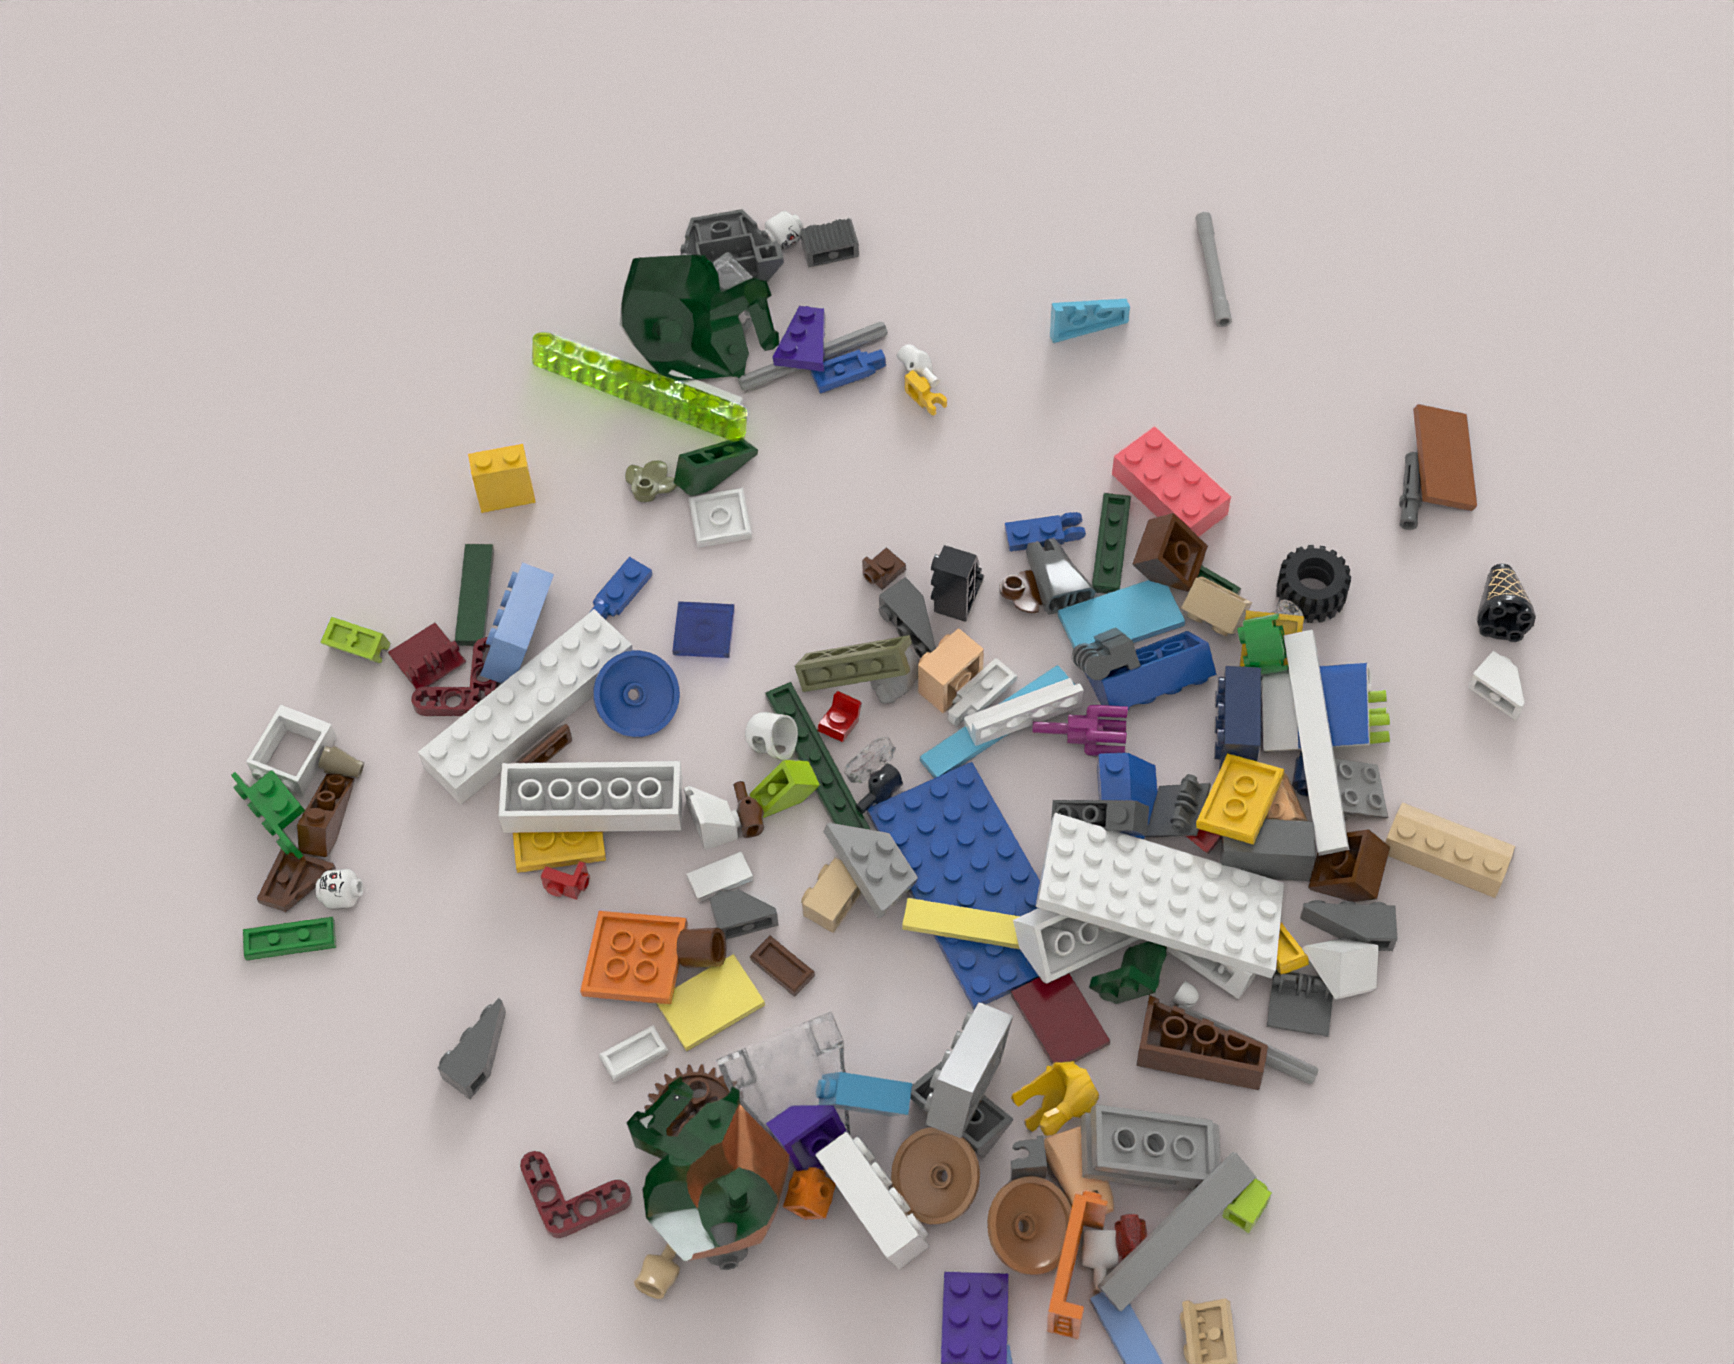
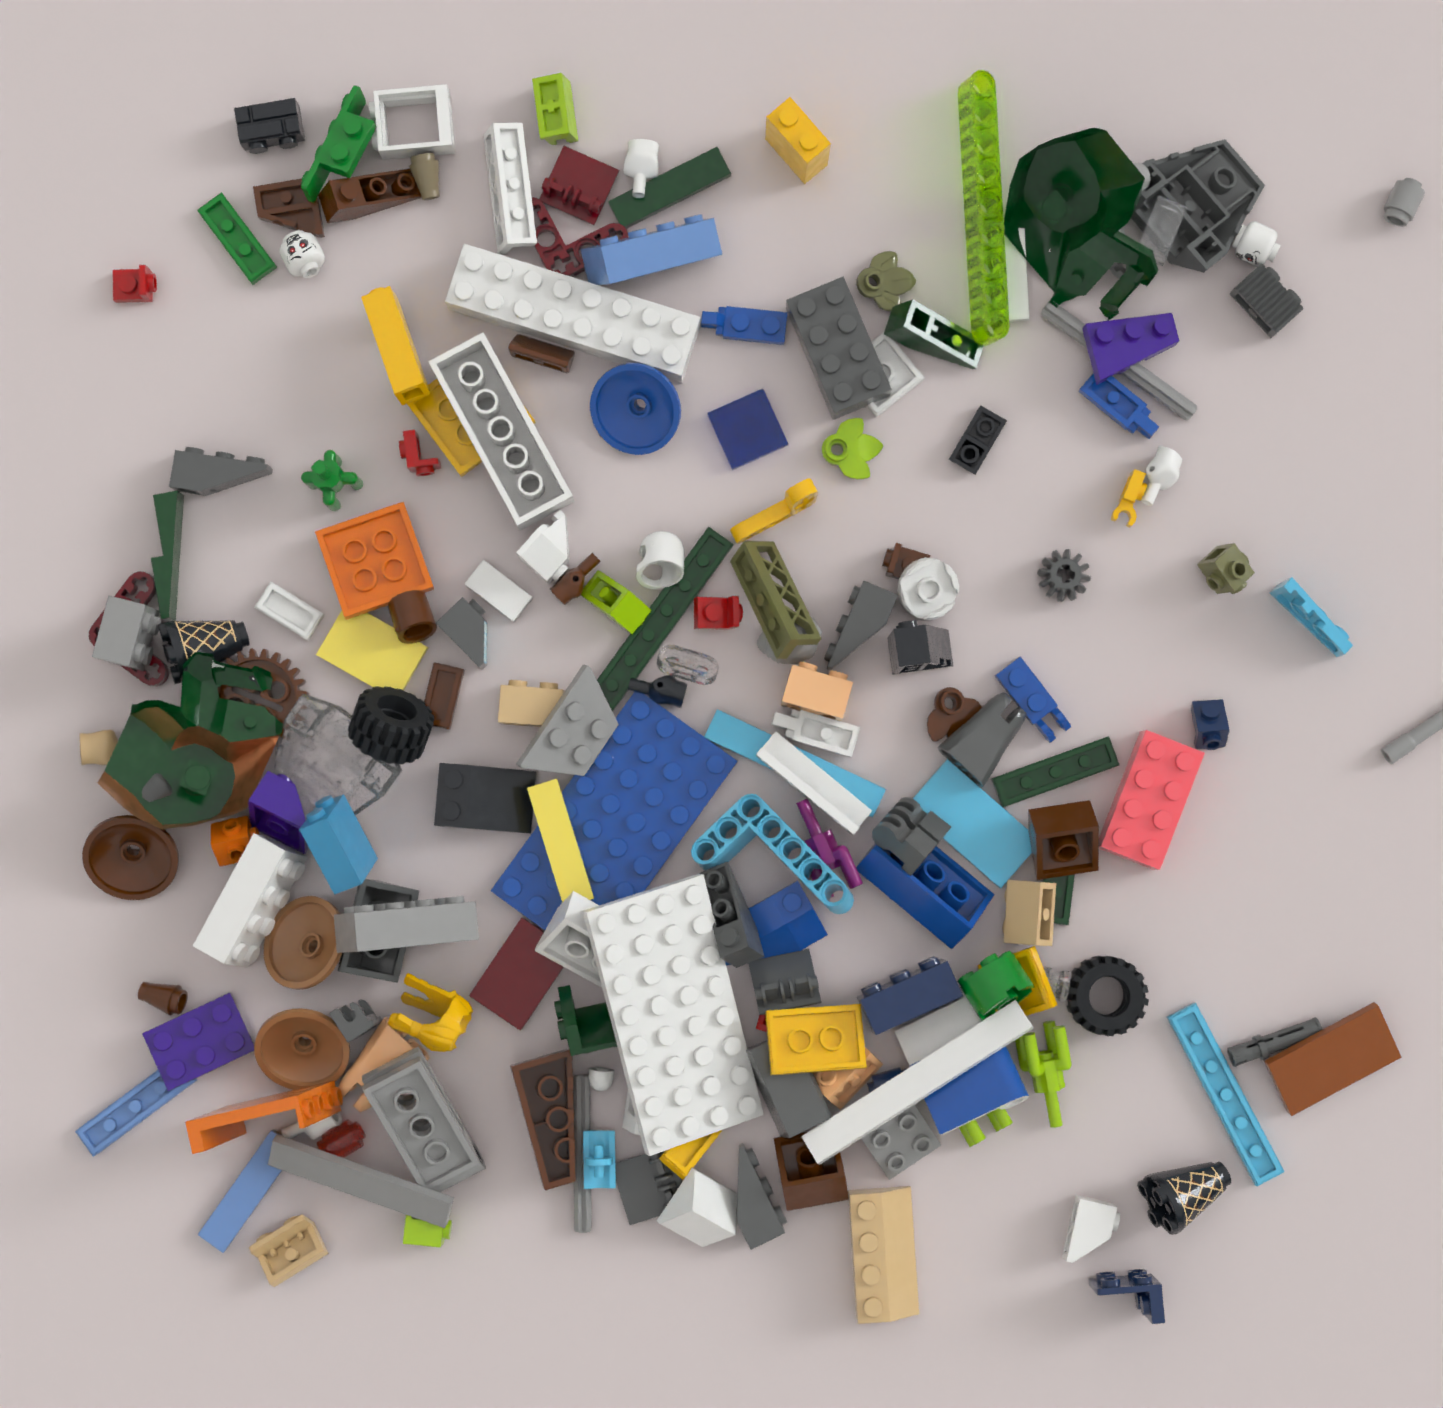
camera: 60 degrees right, 25 degrees up
(215, 861) = (269, 125): none -> black brick
(271, 1040) = (134, 285): none -> red bracket
(392, 700) = (509, 186): none -> white fence
(441, 601) = (641, 163): none -> white piece
(467, 840) = (395, 345): none -> yellow brick
(532, 1134) = (166, 567): none -> dark green slope
(541, 950) = (330, 479): none -> green plant
(573, 1181) = (127, 633): none -> light grey brick
(610, 1143) = (185, 638): none -> black cone
(681, 532) = (838, 348): none -> dark grey brick
(767, 561) = (856, 448): none -> lime plate
(785, 614) = (796, 500): none -> yellow beam
(785, 1002) = (390, 725): none -> black tyre
(790, 1287) = (129, 871): none -> reddish brown dish
(812, 130) = (1403, 202): none -> light grey brick
(814, 475) = (977, 439): none -> black slope
(889, 973) = (484, 798): none -> black slope
(910, 558) = (928, 588): none -> white tile
(916, 1333) = (165, 997): none -> reddish brown cone
(958, 463) = (1072, 569): none -> dark grey gear
(1018, 354) = (1226, 569): none -> olive brick
(1063, 756) = (780, 845): none -> medium azure beam
(1132, 420) = (1210, 724): none -> dark blue bracket
(1258, 1025) = (599, 1159): none -> medium azure hips
(1351, 650) = (1046, 1065): none -> lime plant
(1436, 544) = (1225, 1094): none -> medium azure tile
(1576, 661) = (1145, 1286): none -> dark blue bracket

